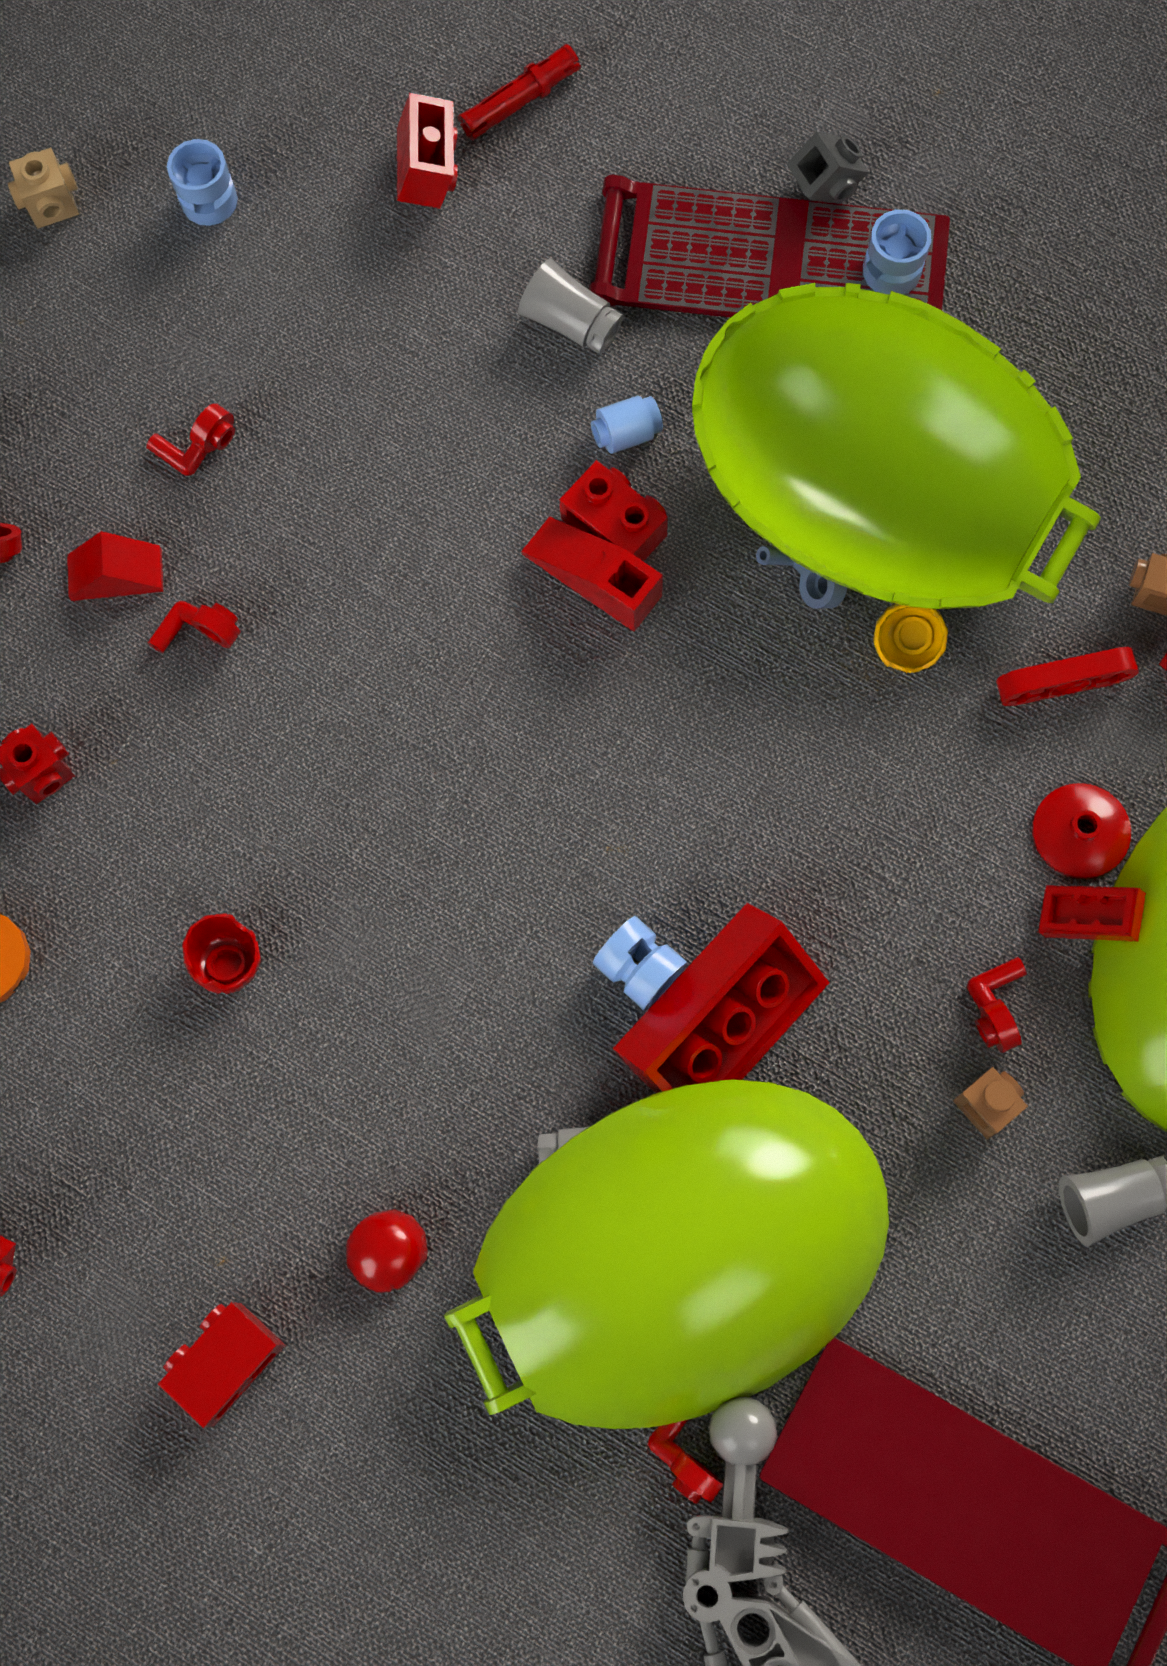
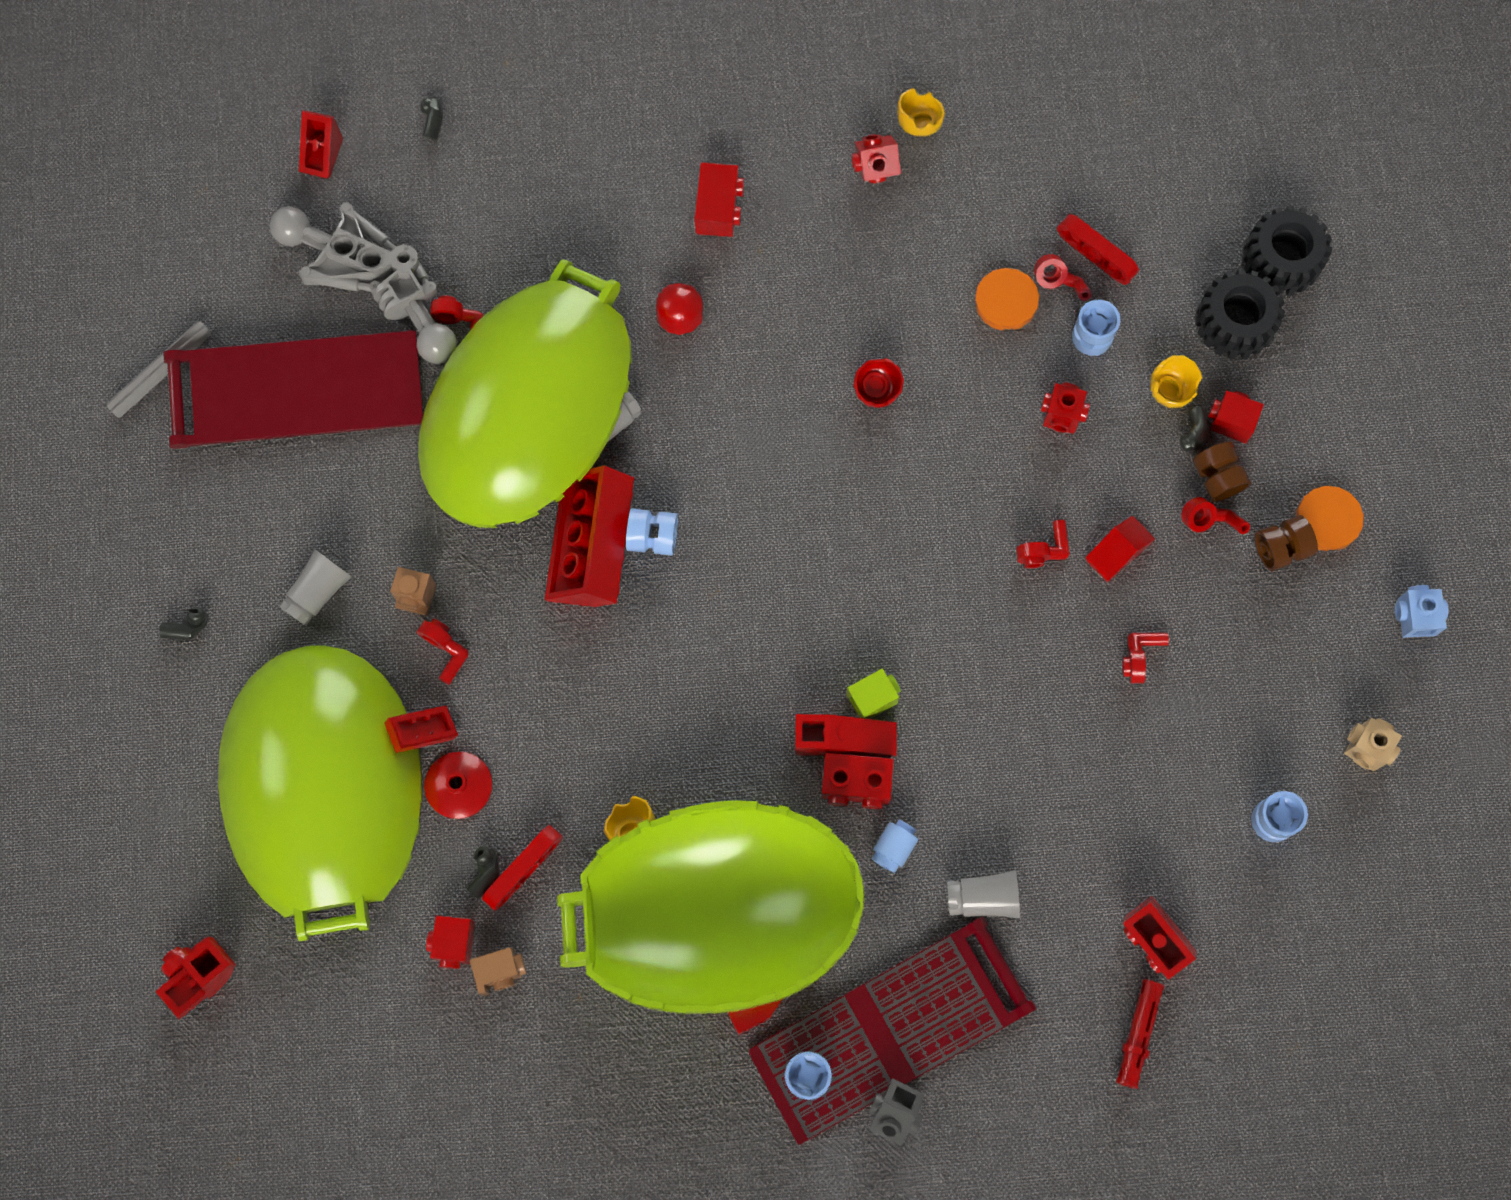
camera: 140 degrees right, 0 degrees up
(523, 593) = (874, 694): none -> lime brick
(1109, 703) = (488, 871): none -> pearl dark grey arm

